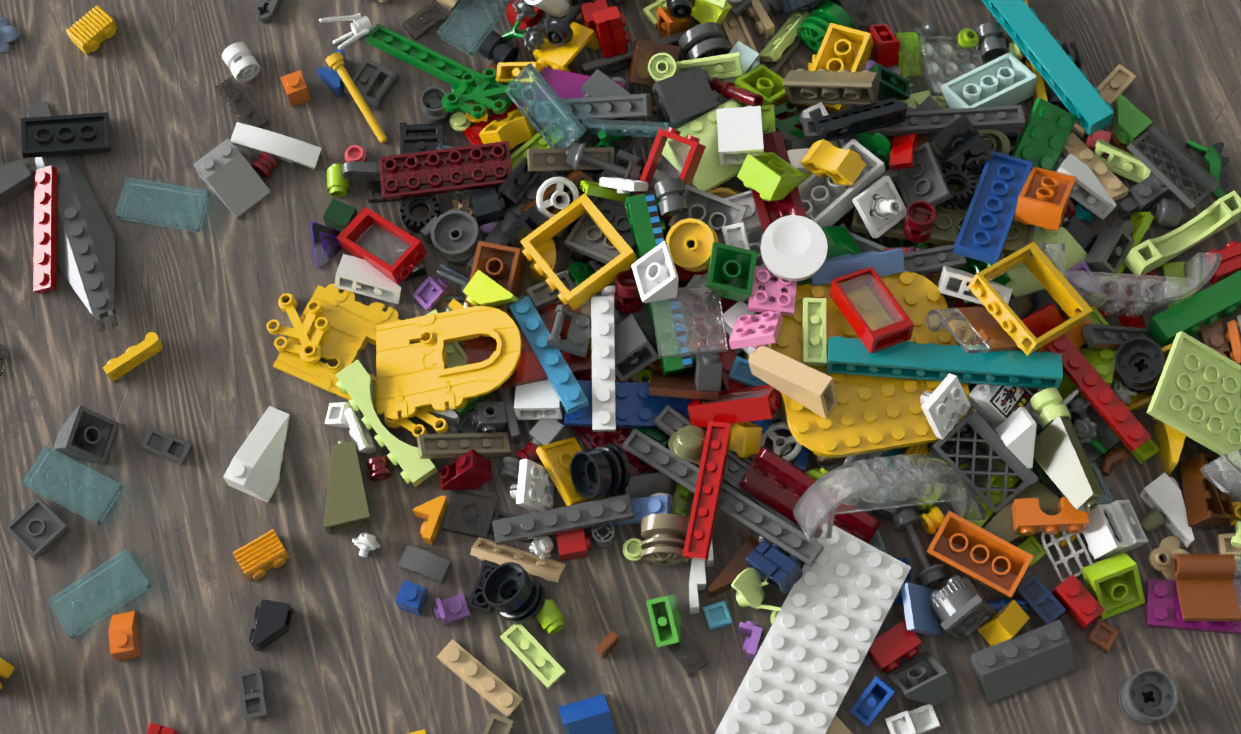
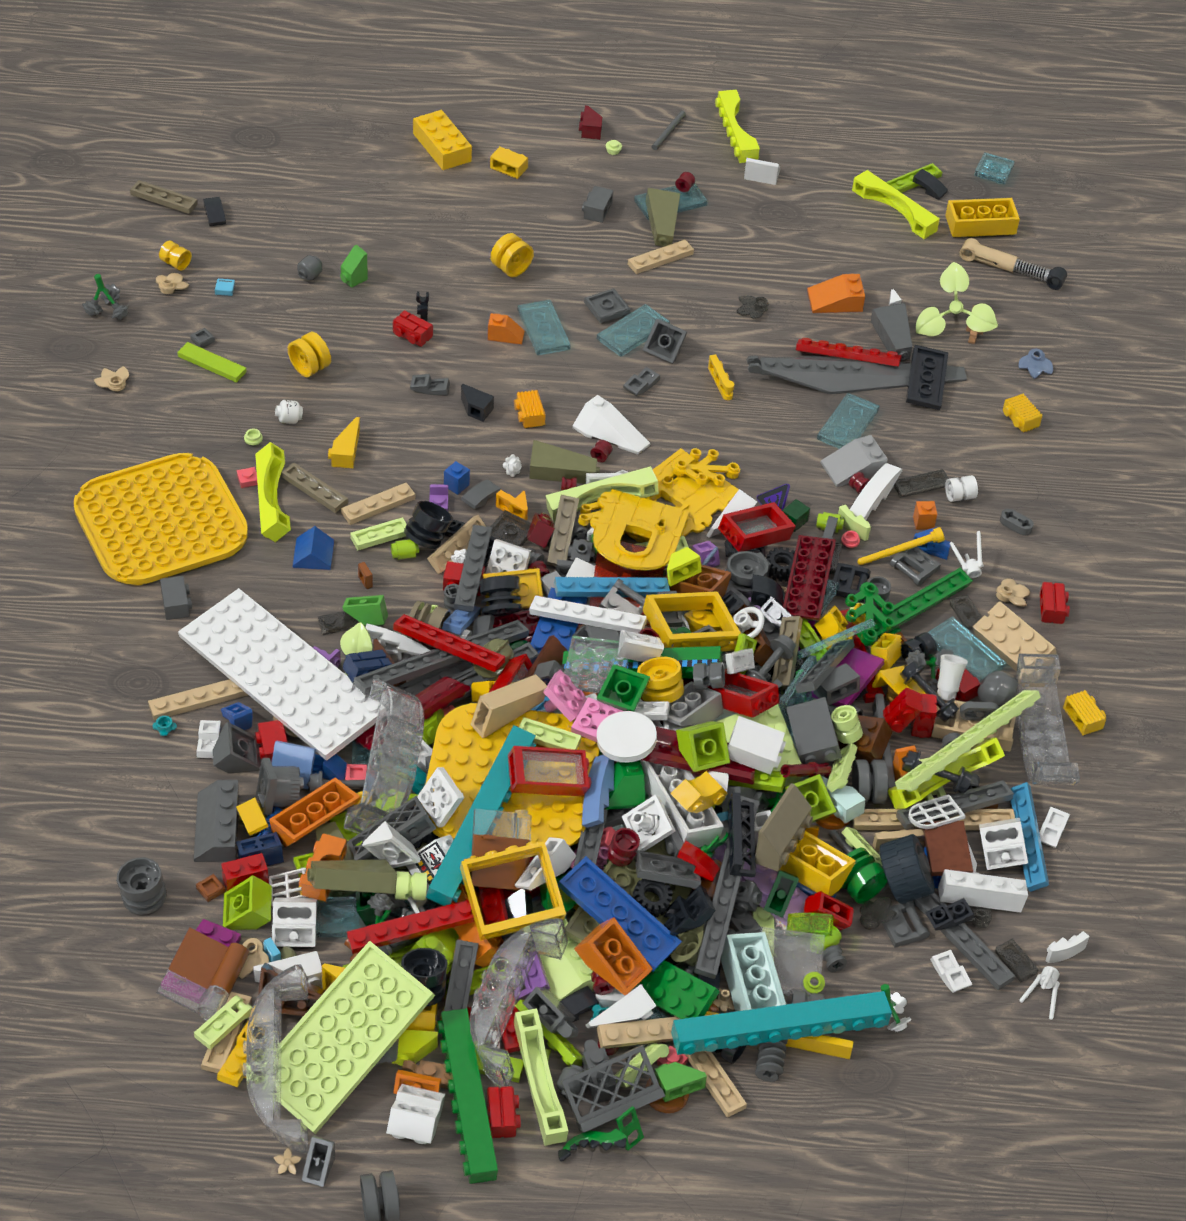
camera: 100 degrees right, 20 degrees down
(306, 451) = (601, 450): none -> dark red wheel
(335, 149) = (854, 523): none -> yellowish green slope
(897, 543) = (356, 772): none -> coral plate
(1156, 538) = (271, 950): none -> medium azure tile

